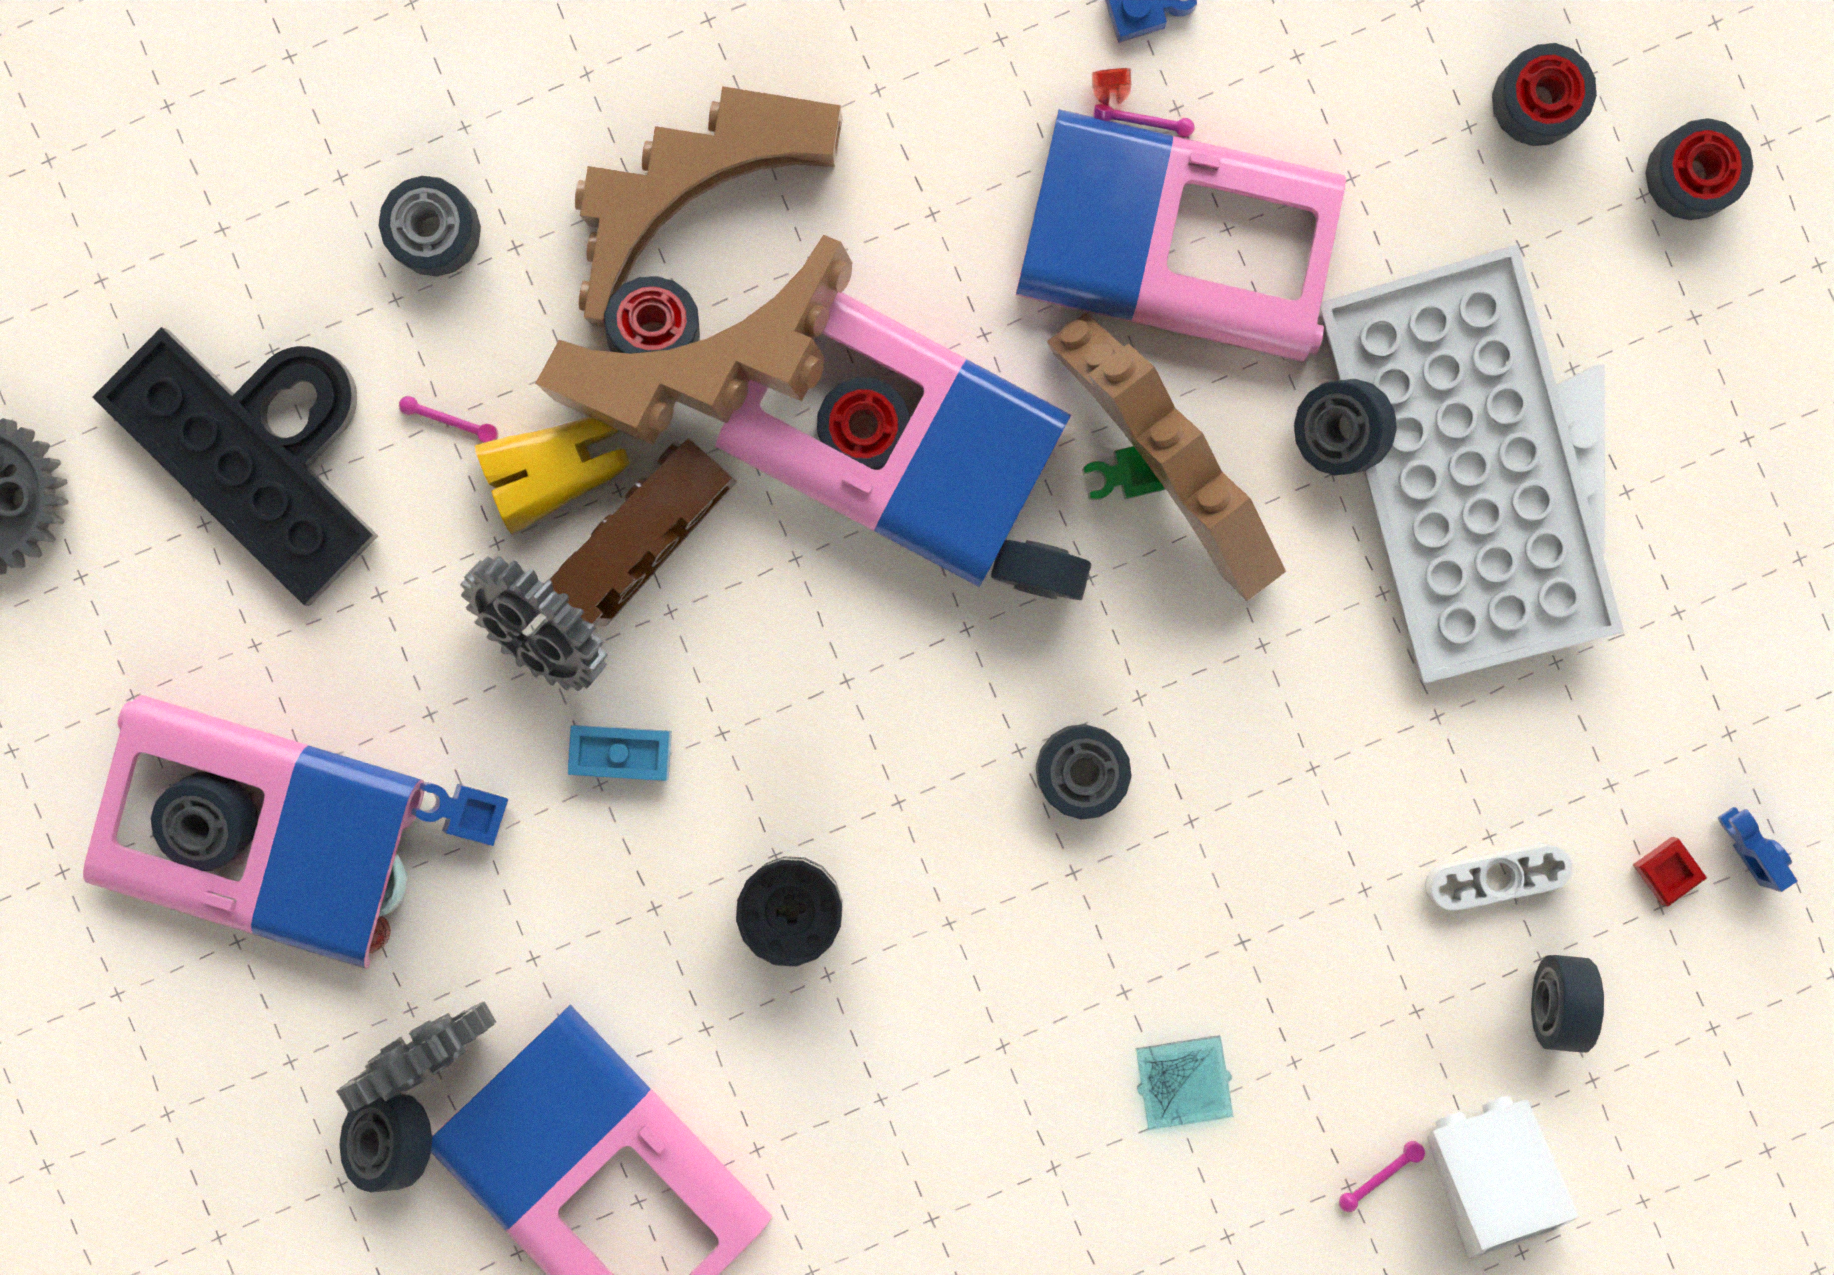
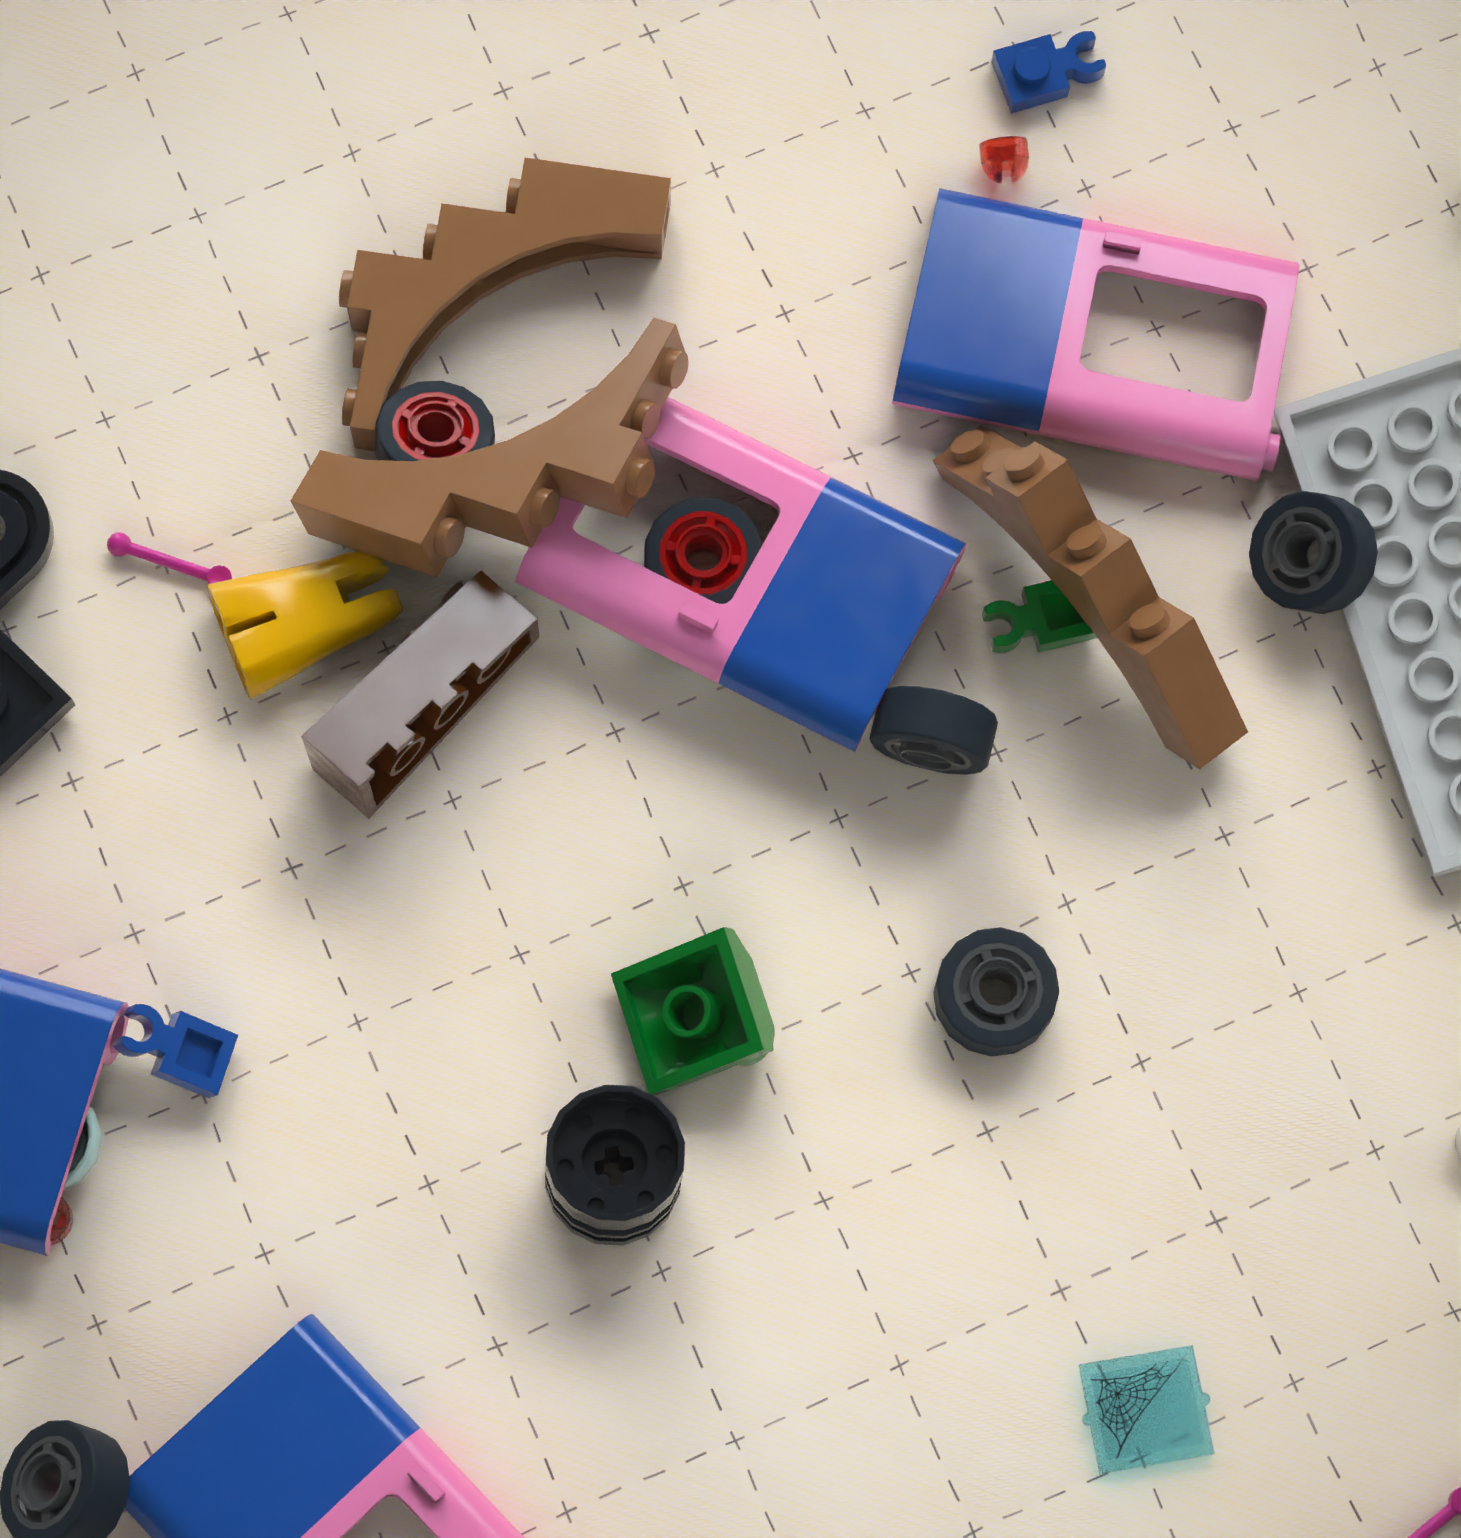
camera: 10 degrees left, 15 degrees down
(402, 1065) = (110, 1354): dark grey gear -> none
(406, 211) = (150, 294): wheel -> none
(510, 600) = (248, 758): dark grey gear -> none
(619, 752) = (386, 973): dark azure plate -> none
(854, 787) = (695, 1011): none -> green slope
(1183, 127) = (1095, 208): dark pink hinge -> none

